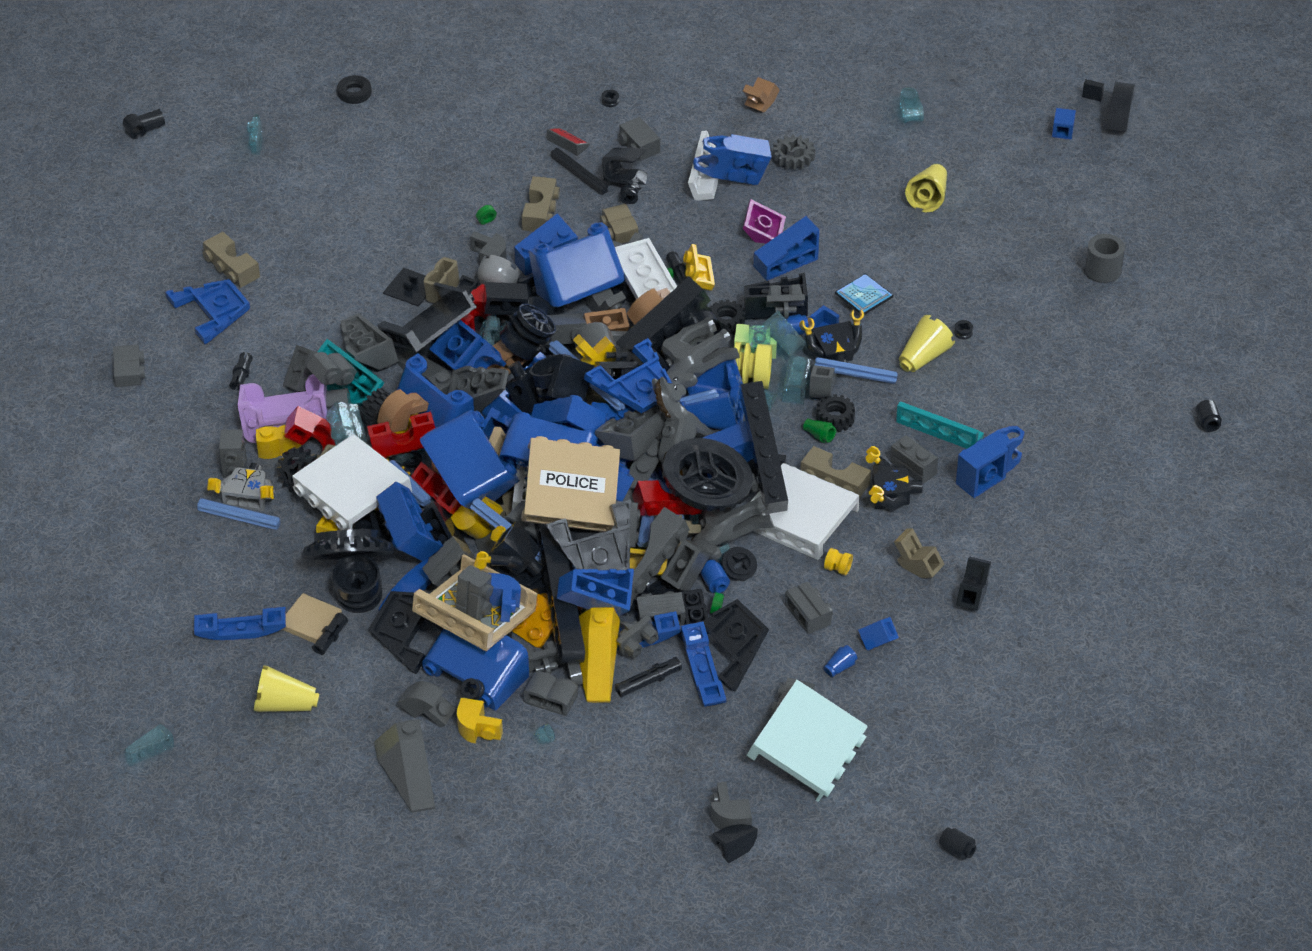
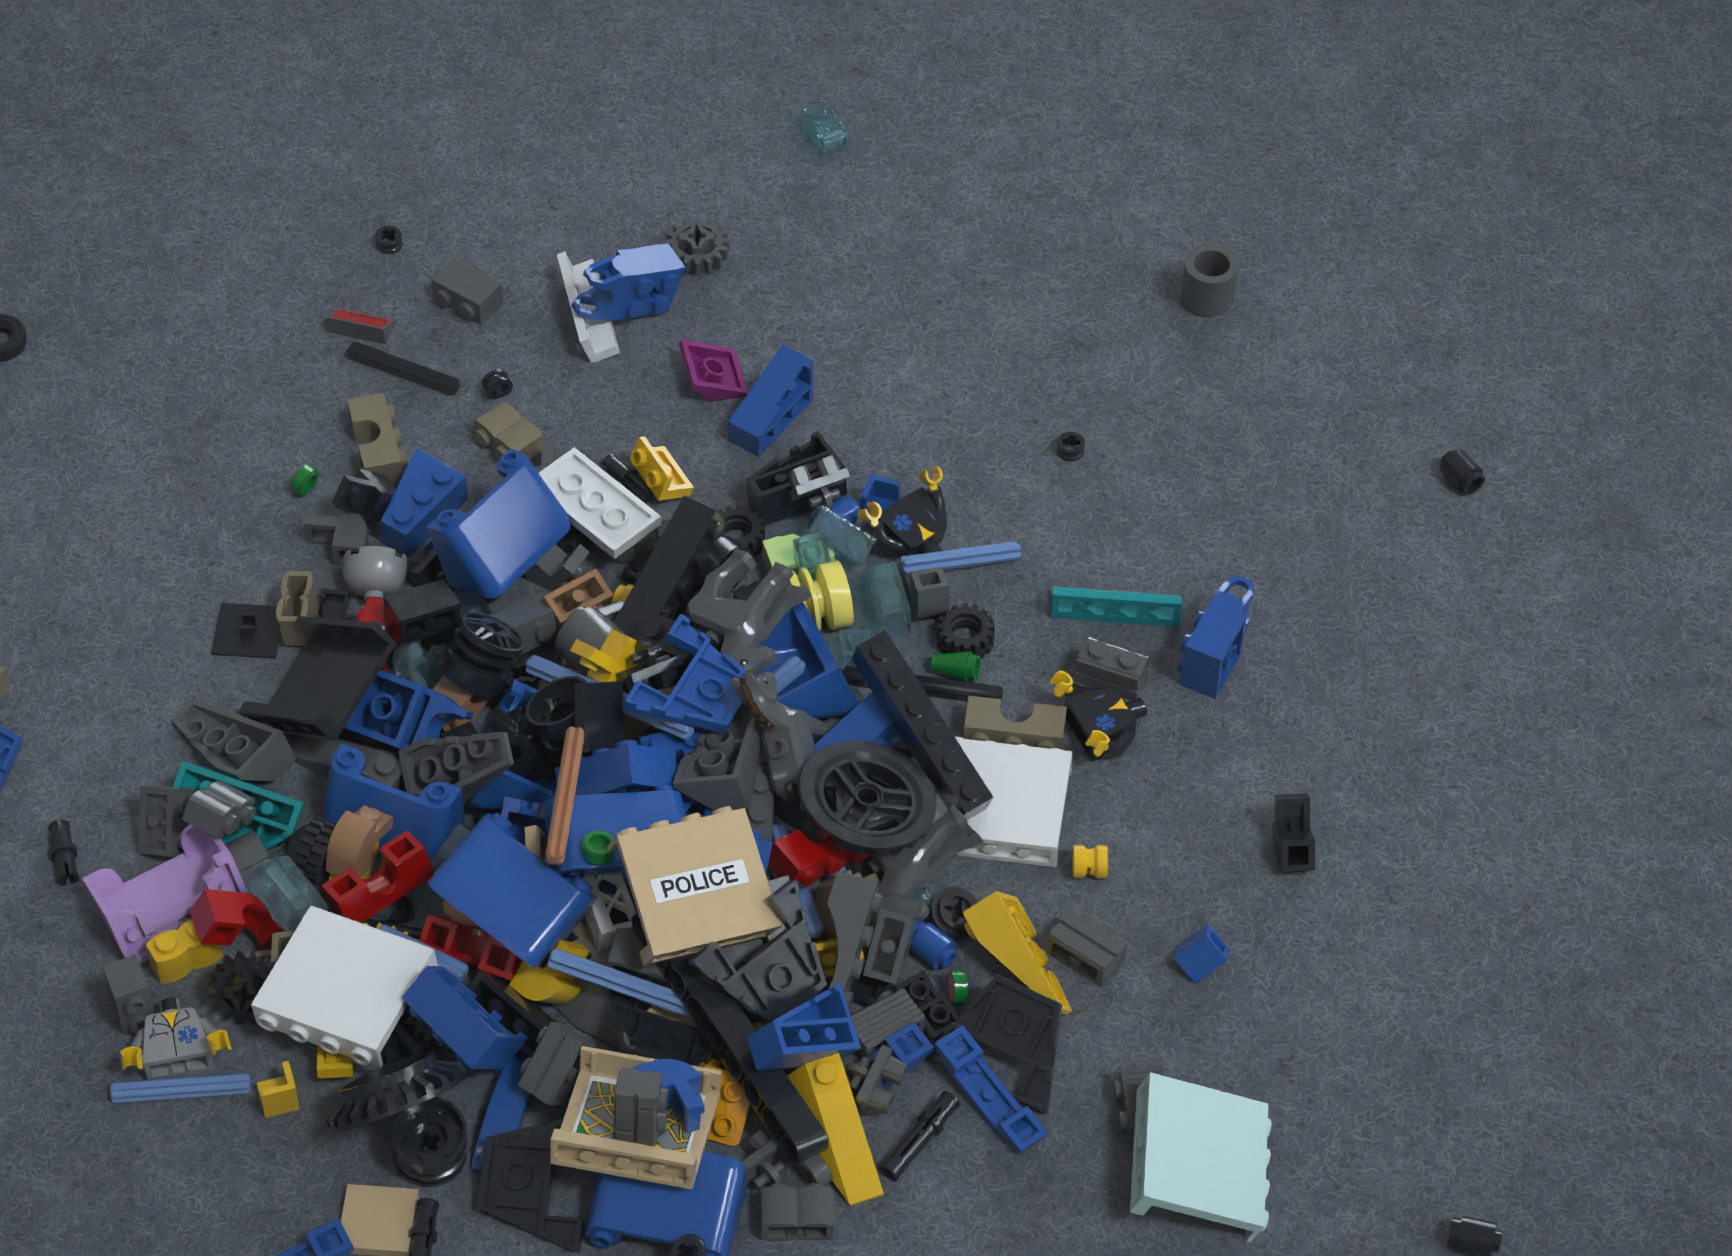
camera: 25 degrees left, 5 degrees up
(290, 534) = (279, 1094): none -> yellow panel
(512, 229) = (365, 494): none -> black brick
(512, 550) = (650, 1014): black torso -> none
(521, 413) = (564, 796): none -> nougat axle
(521, 446) = (595, 848): none -> green tile
(617, 173) = (475, 356): black piece -> none
(646, 303) = (632, 556): medium nougat brick -> none
(761, 95) = (606, 171): medium nougat brick -> none
(763, 584) = (1006, 933): none -> yellow wedge
(803, 439) = (937, 686): none -> black axle
(840, 661) = (1172, 1013): blue cone -> none
(864, 294) = (910, 436): piece -> none
(915, 558) = (1198, 820): dark tan brick -> none
(925, 344) = (1037, 486): light yellow cone -> none
(927, 188) = (916, 247): light yellow cone -> none
(1063, 123) = (1044, 92): blue brick -> none
(1093, 90) = (1057, 30): black tile -> none
(1120, 106) = (1111, 44): black arch -> none

